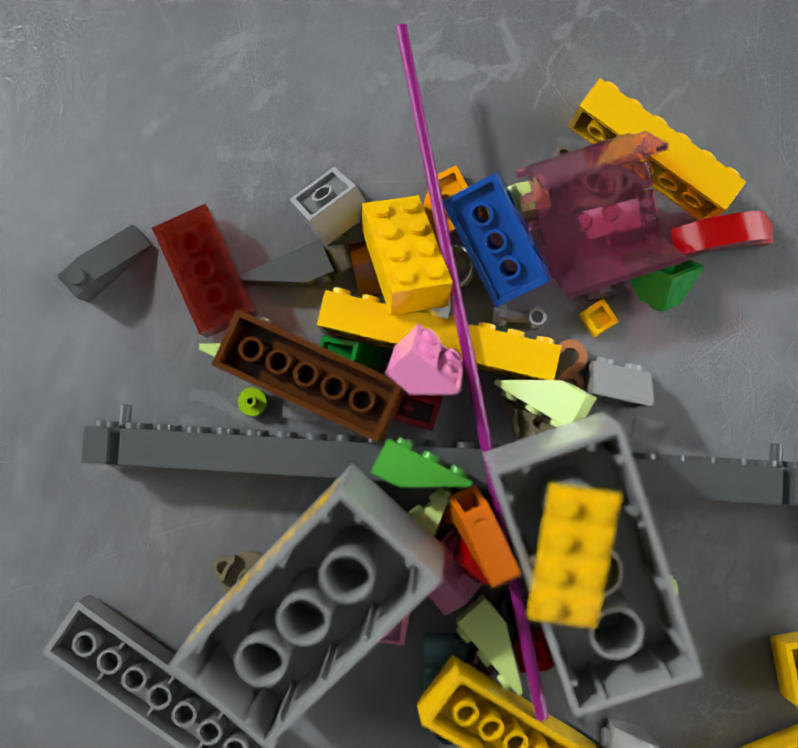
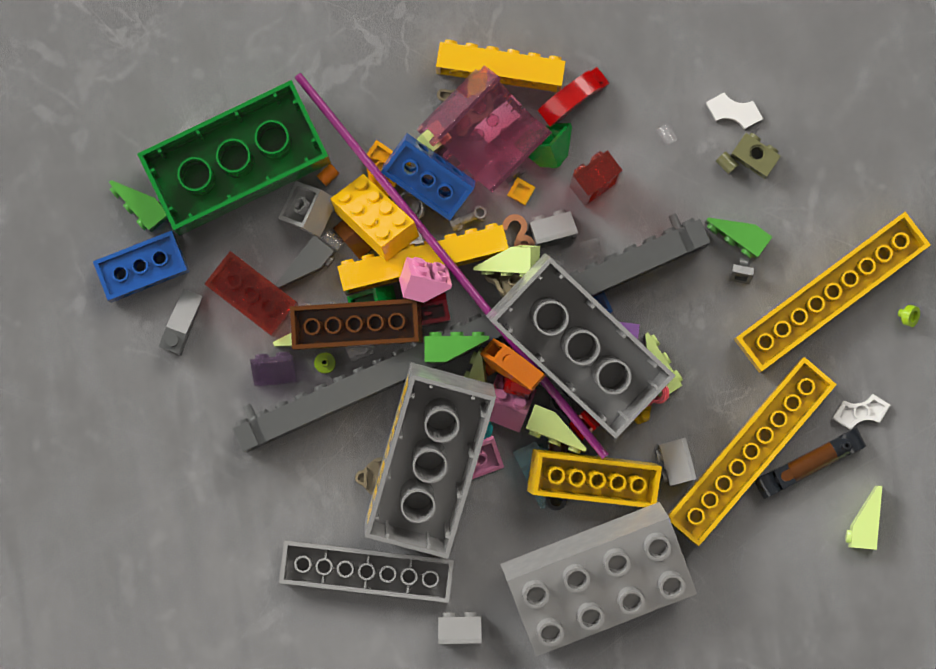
camera: 25 degrees left, 0 degrees up
(62, 166) = (129, 258): none -> blue brick
(139, 111) = (144, 206): none -> bright green slope
(187, 381) = (274, 370): none -> clear purple slope
(266, 89) = (234, 158): none -> green brick
(376, 177) = (328, 174): none -> orange hinge
(573, 555) = (562, 344): yellow plate -> none
(714, 345) = (596, 177): none -> clear red brick

